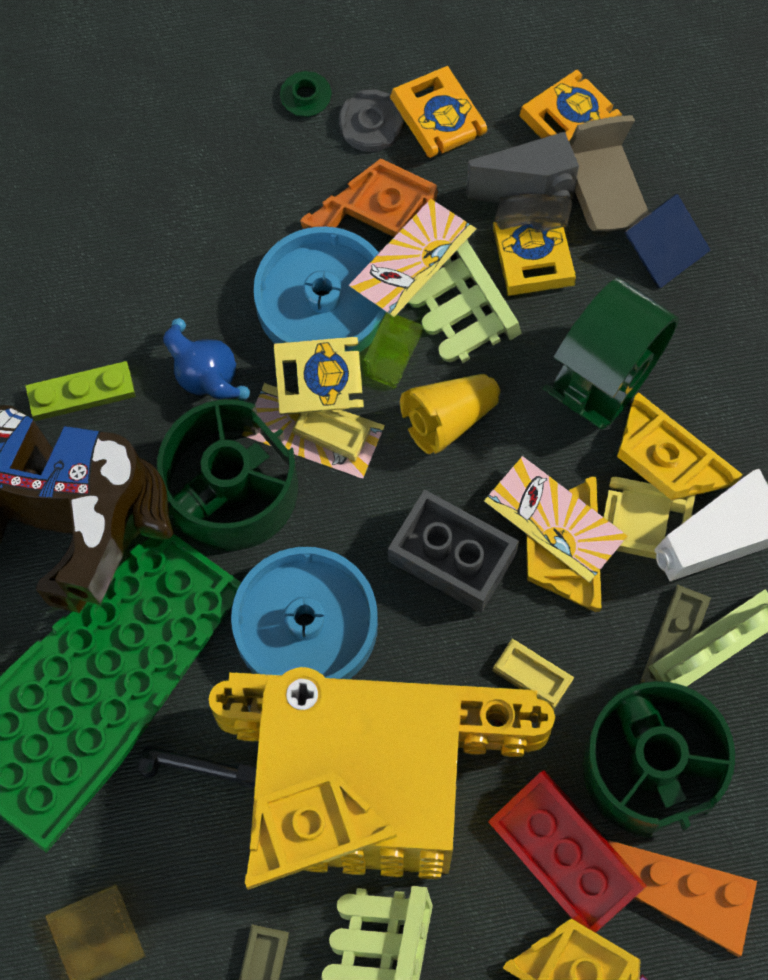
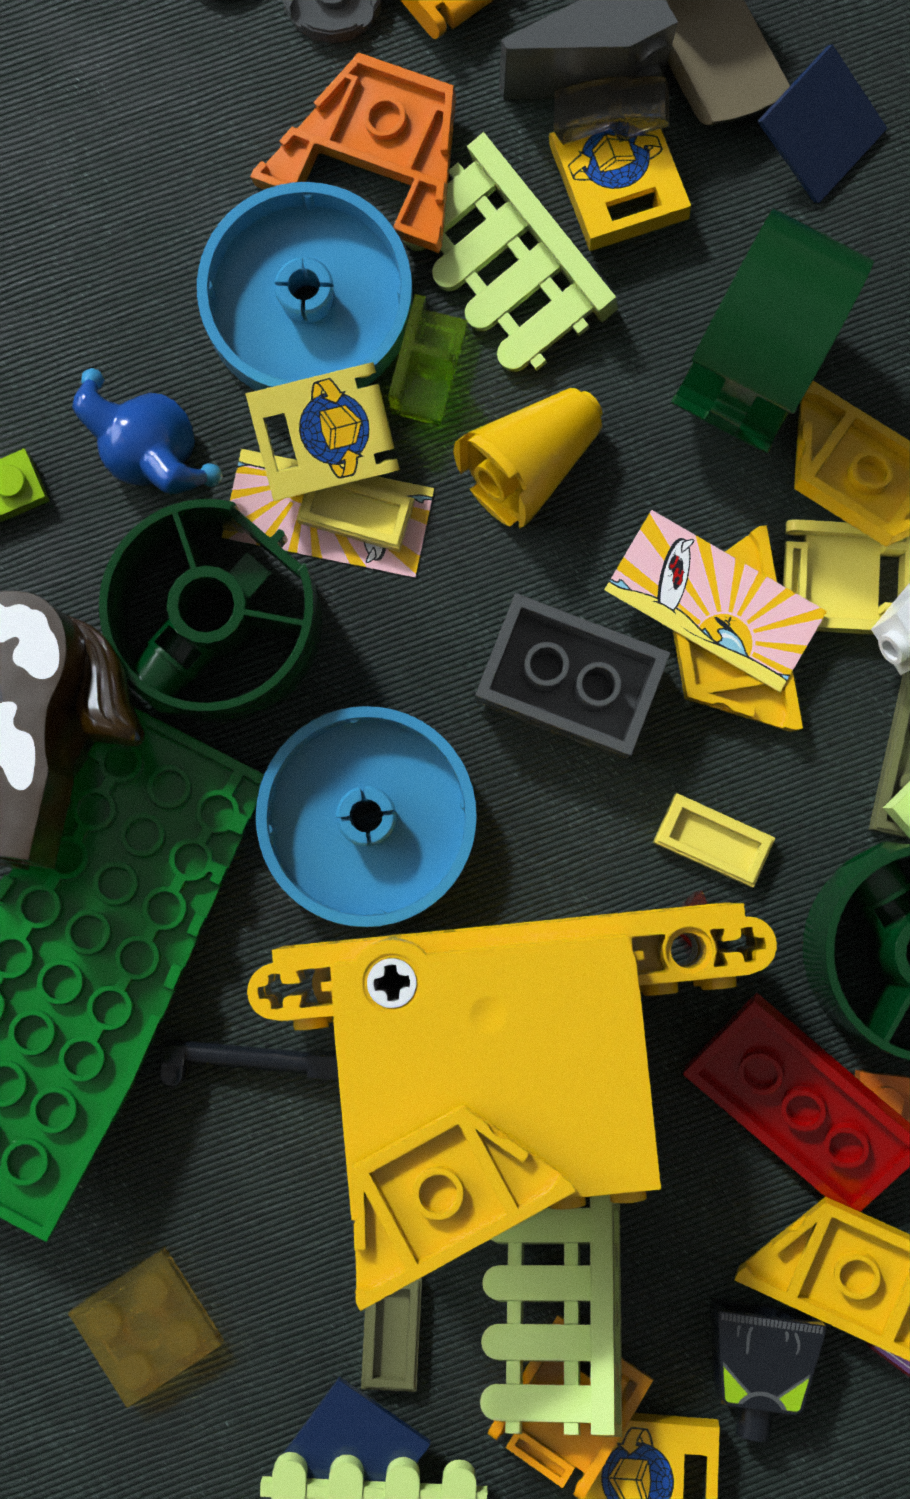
camera: 10 degrees left, 15 degrees up
(412, 257) = (436, 214): sticker -> none

